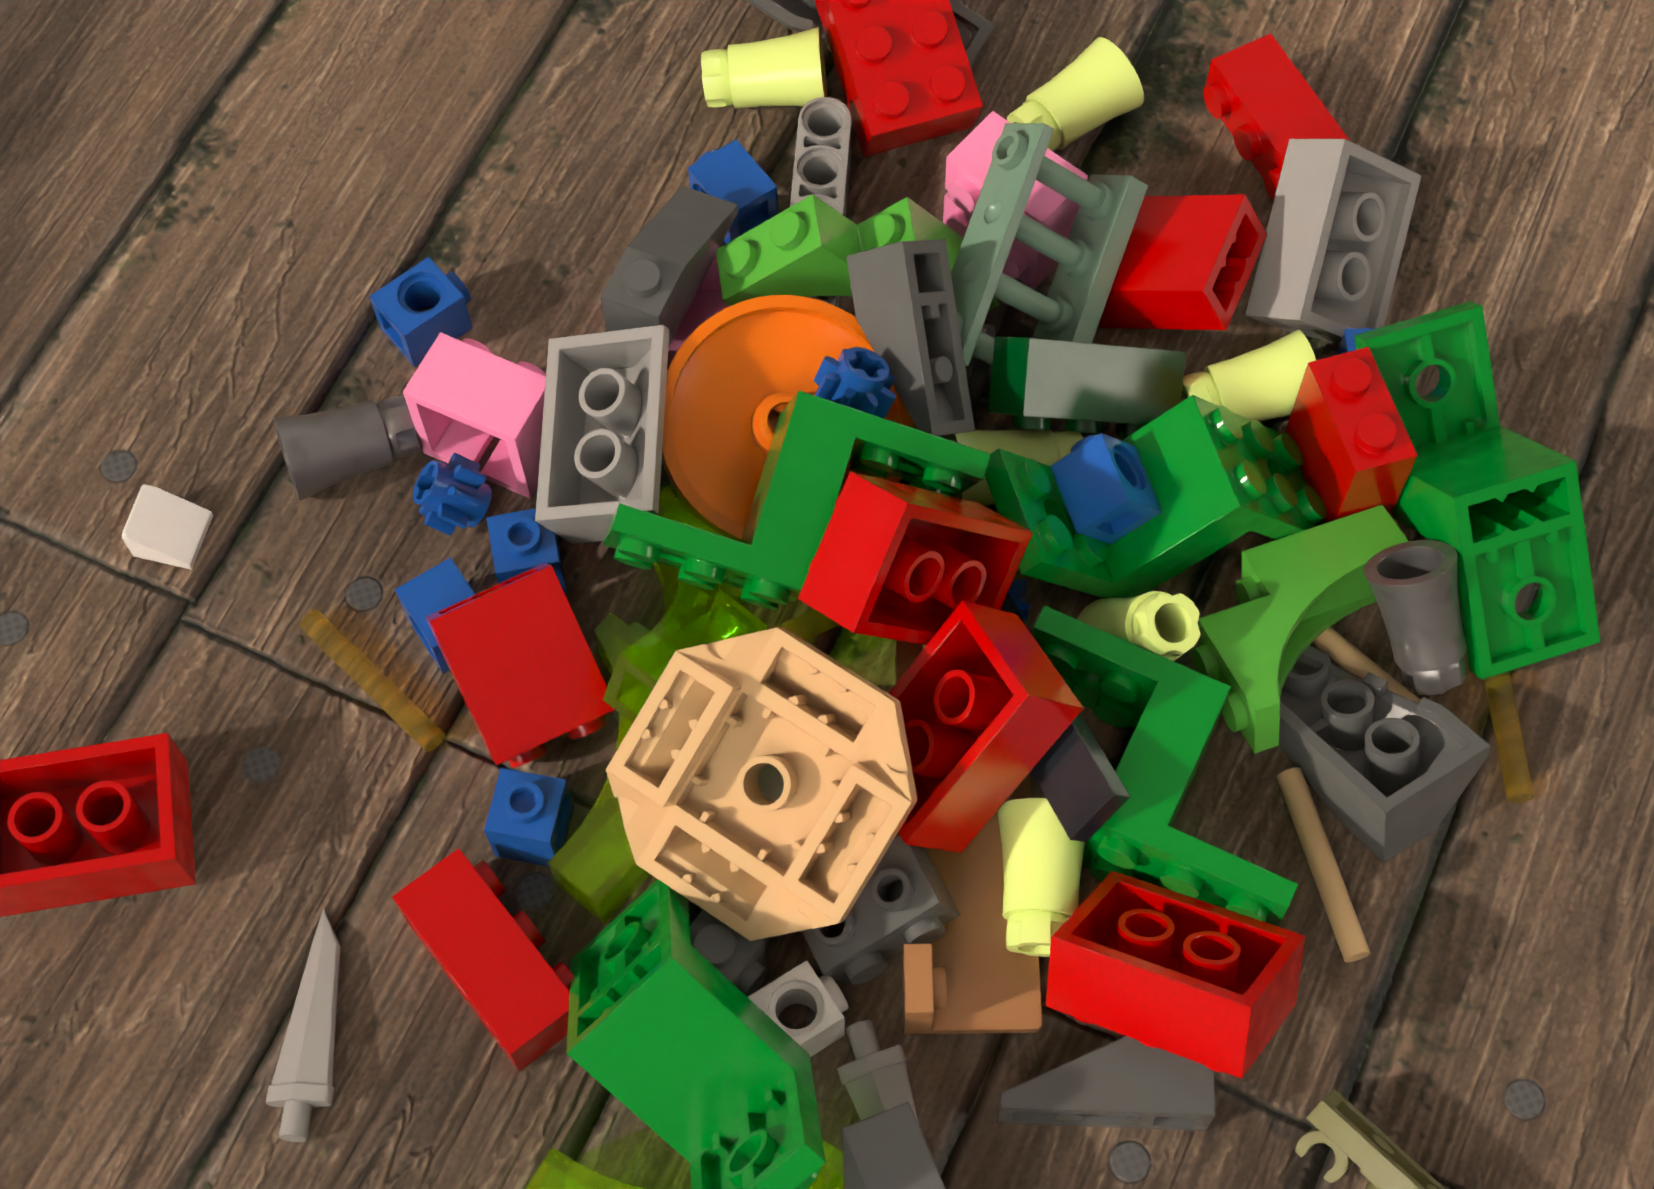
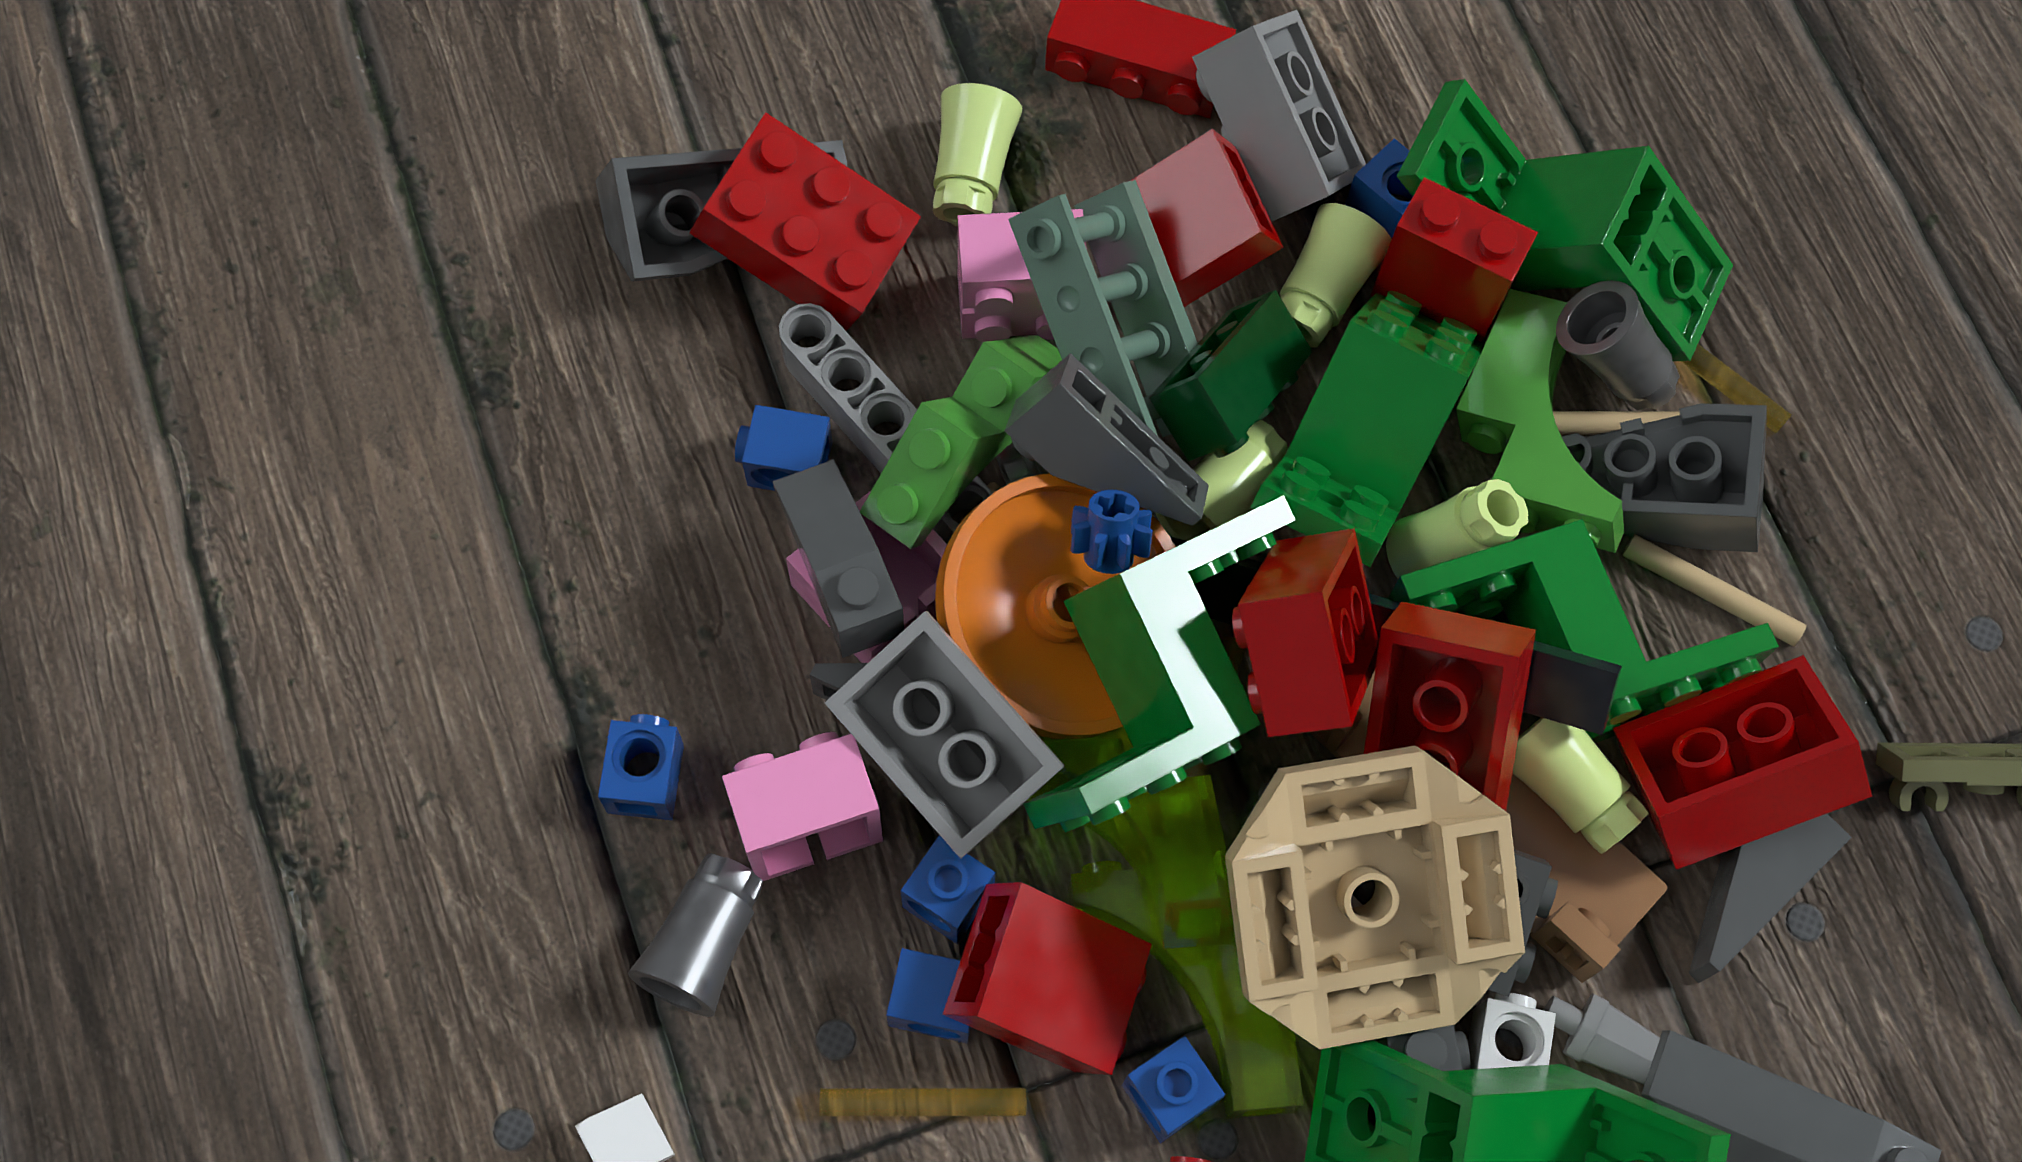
camera: 50 degrees left, 5 degrees up
(452, 494) = (835, 896): blue gear -> none
(766, 72) = (711, 326): yellowish green plant -> none
(1105, 488) = (1342, 445): blue brick -> none

